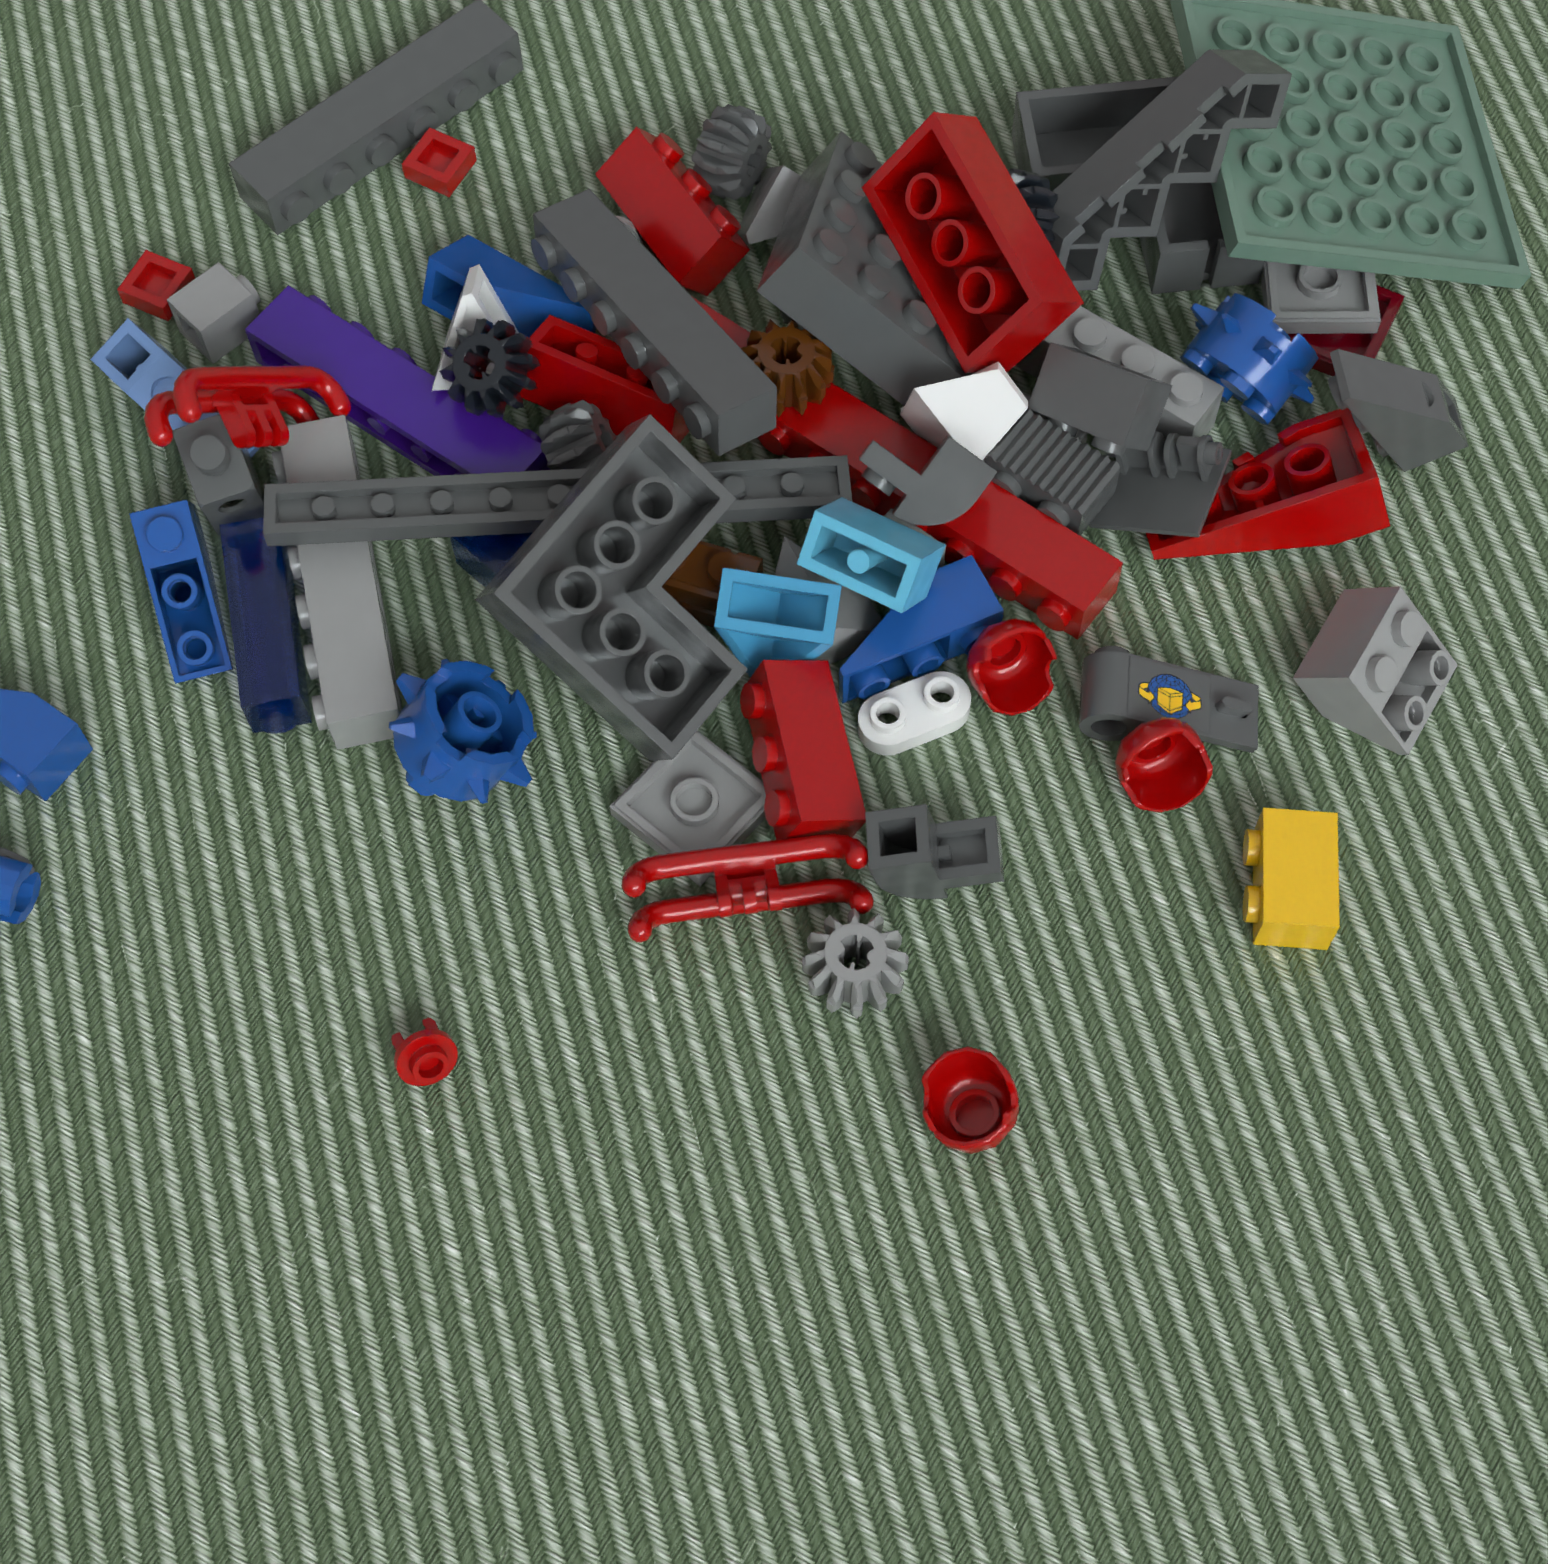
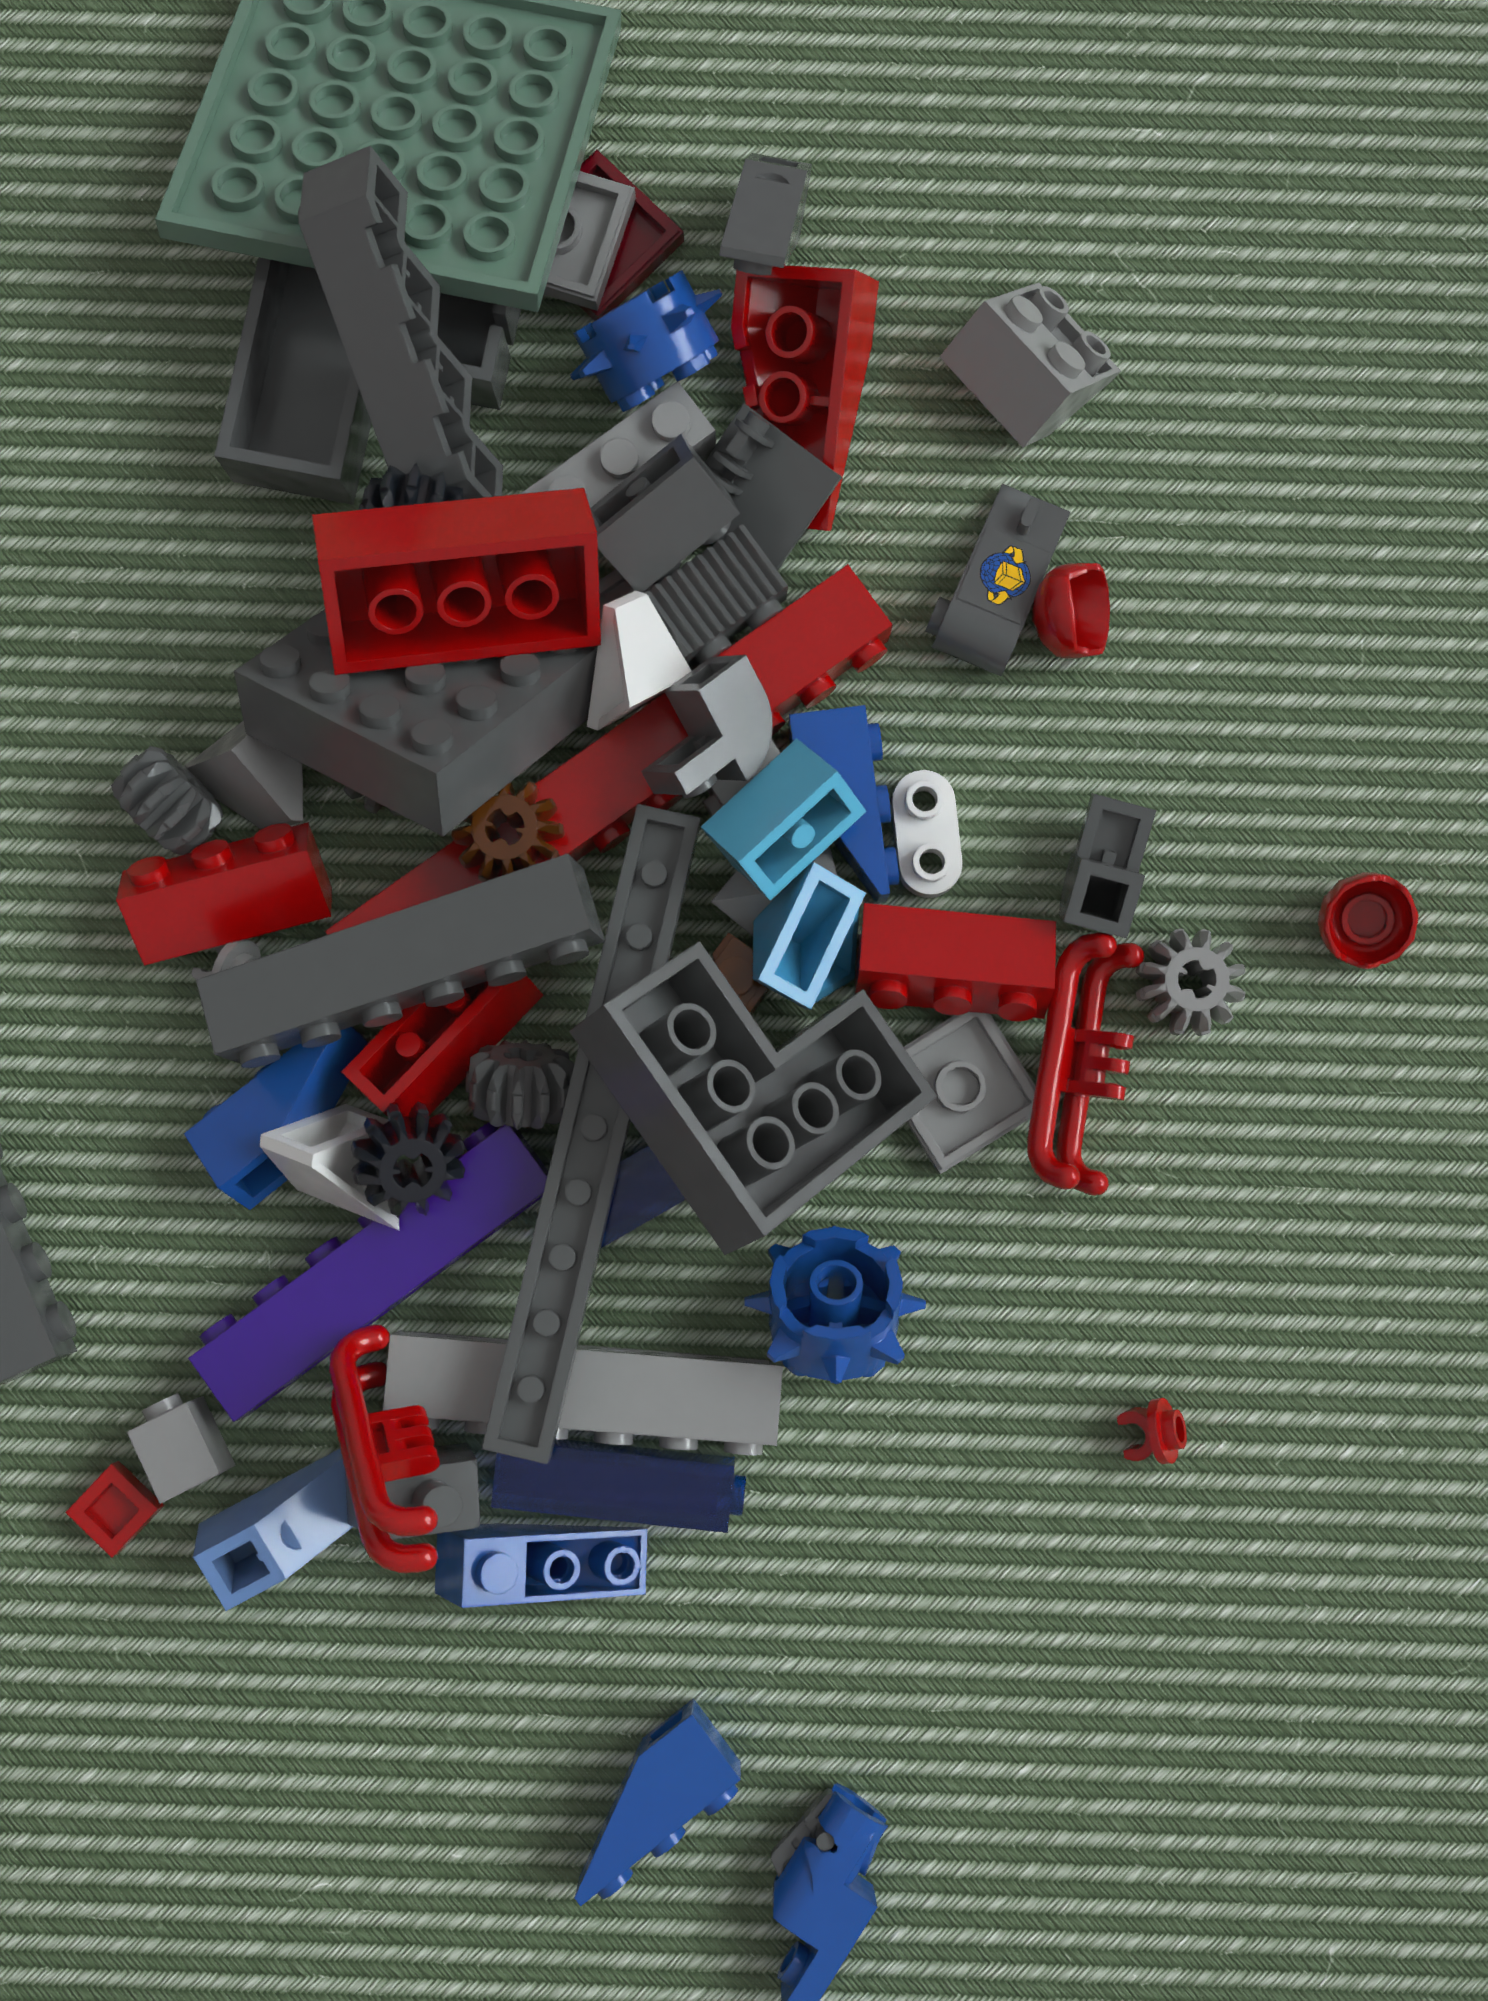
camera: 75 degrees left, 20 degrees up
(439, 162) = (49, 1138): red plate -> none
(1011, 666) = (919, 720): red hair -> none
(1293, 878) = (1230, 532): yellow brick -> none

